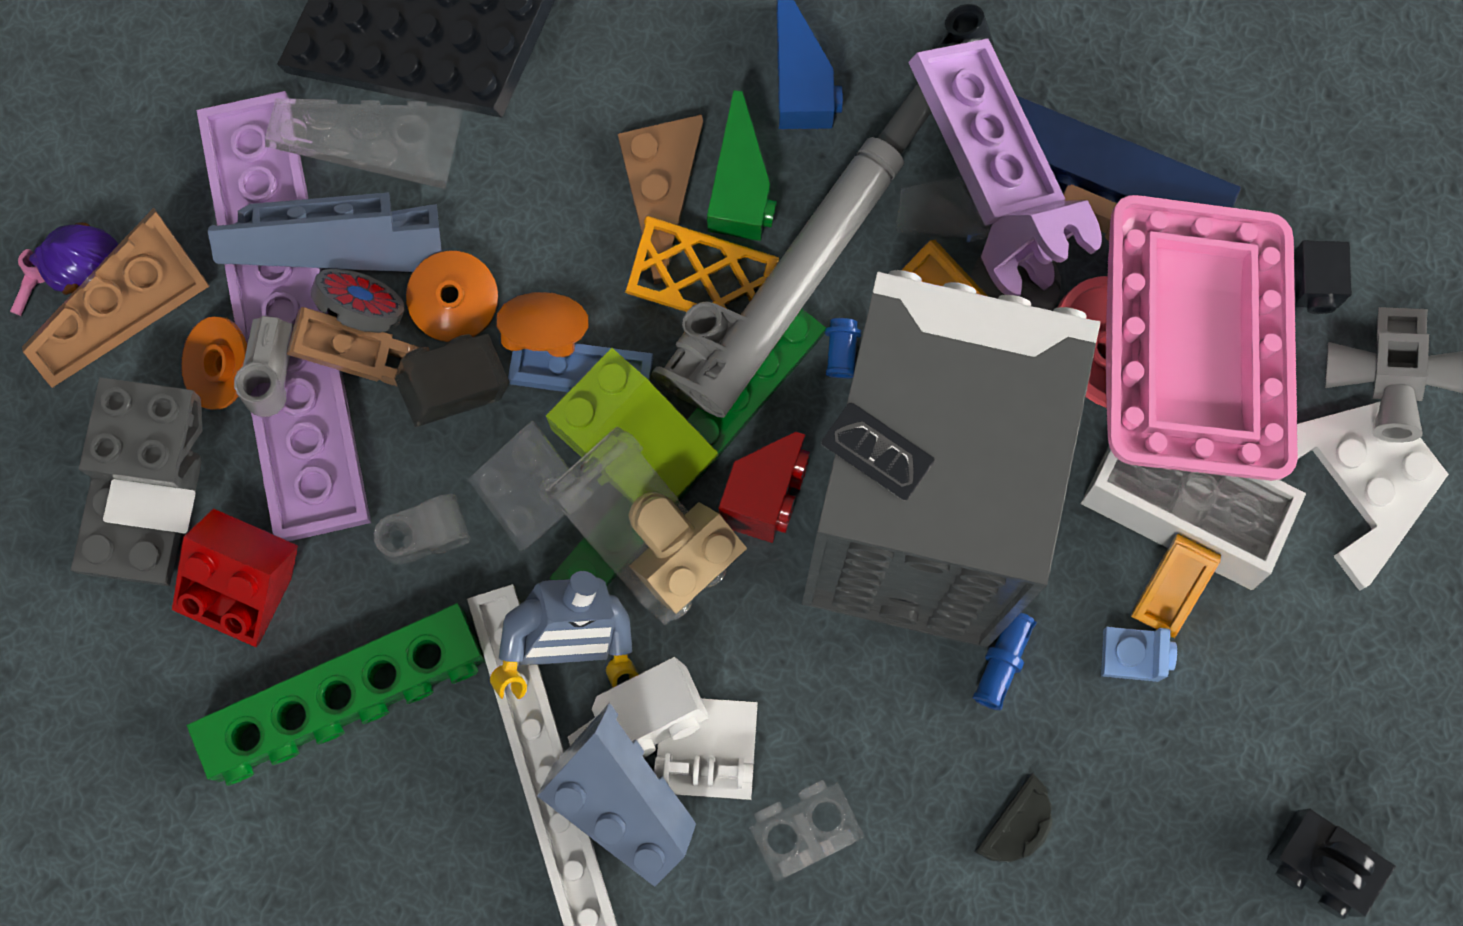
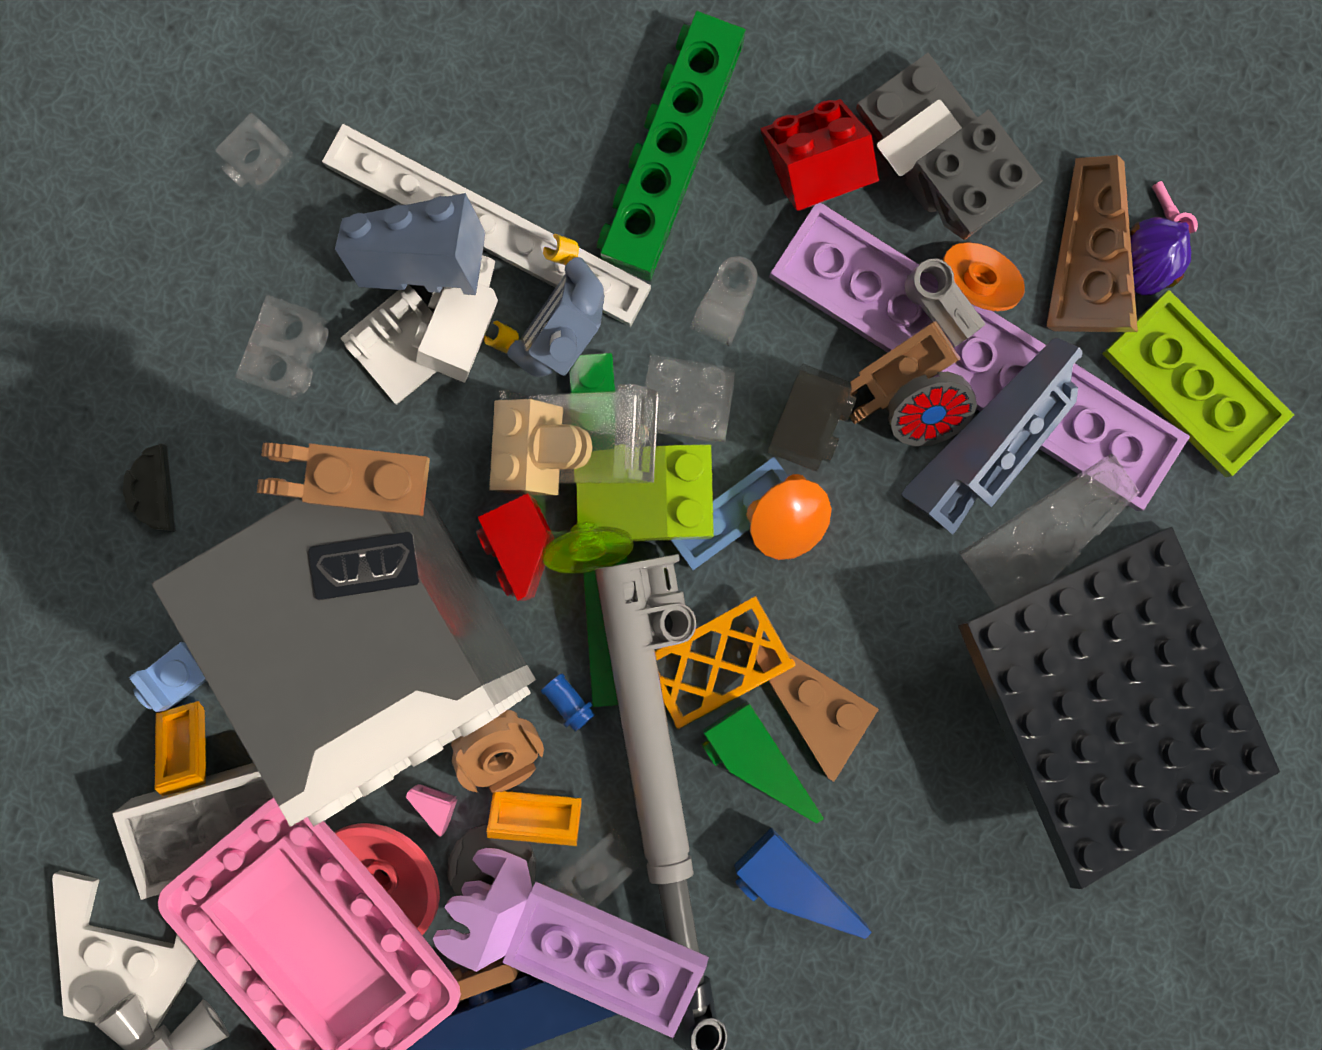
camera: 135 degrees right, 10 degrees up
(149, 141) = (1198, 384): none -> lime plate
(475, 301) = (878, 501): orange dish -> none
(712, 432) = (587, 548): none -> clear neon green dish
(827, 517) = (351, 478): none -> medium nougat hinge

